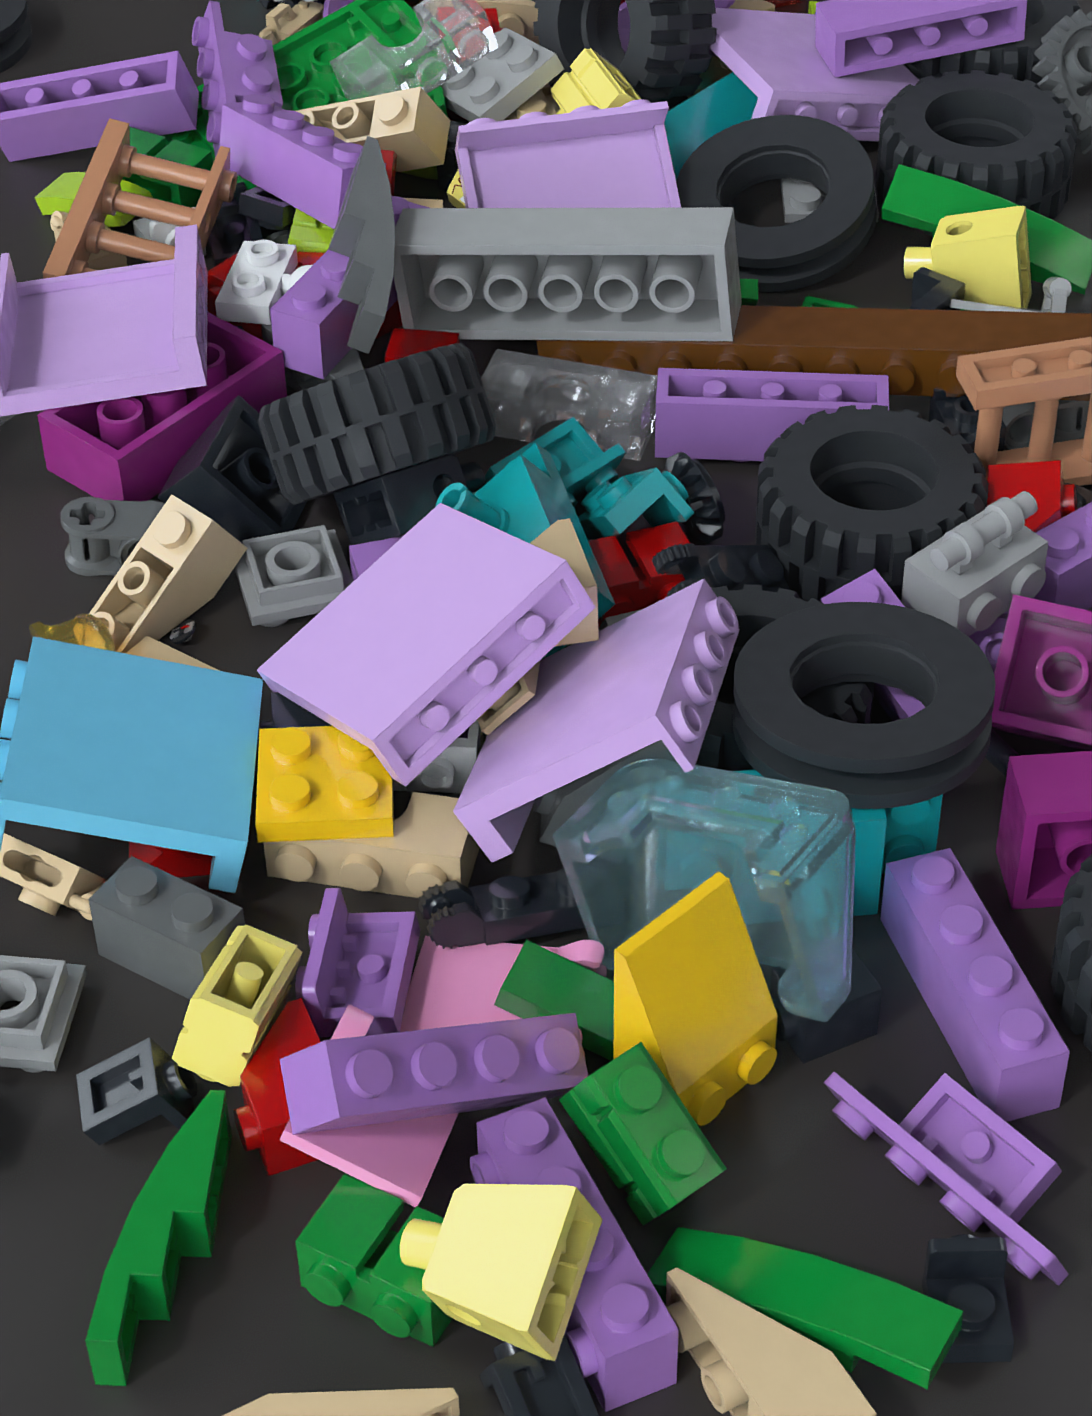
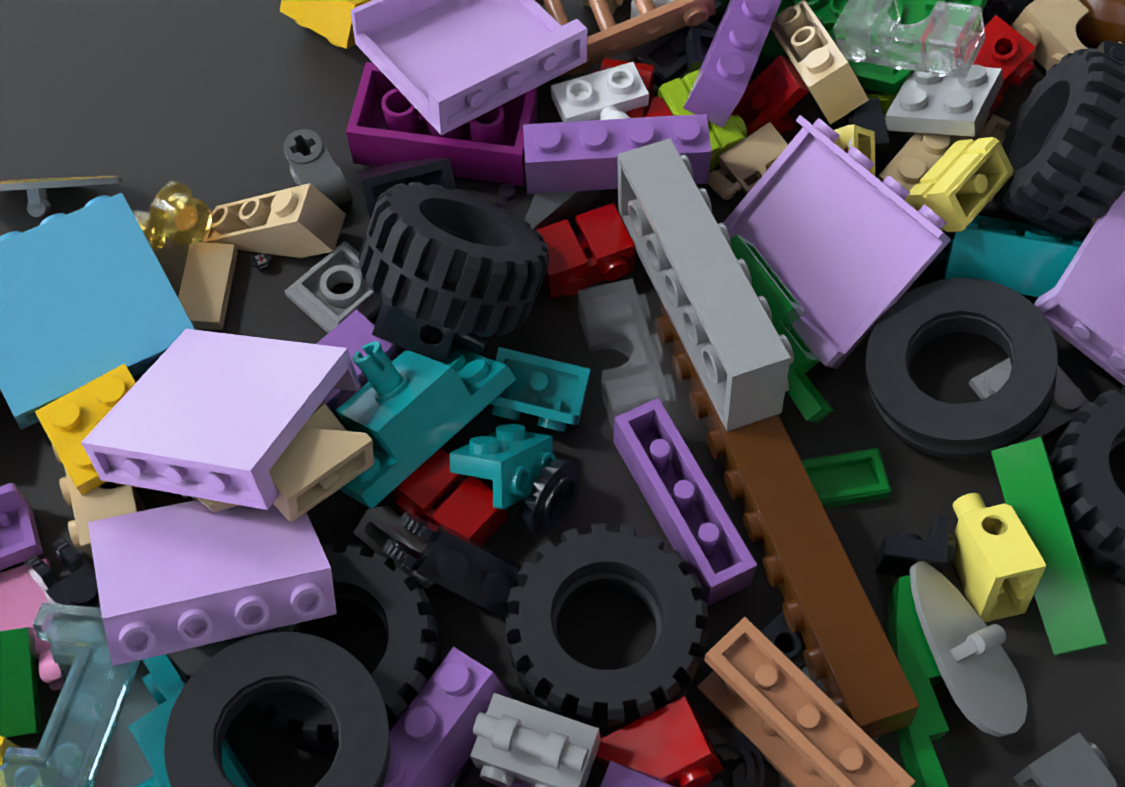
camera: 60 degrees right, 20 degrees up
(368, 238) = (619, 126): dark grey slope -> none

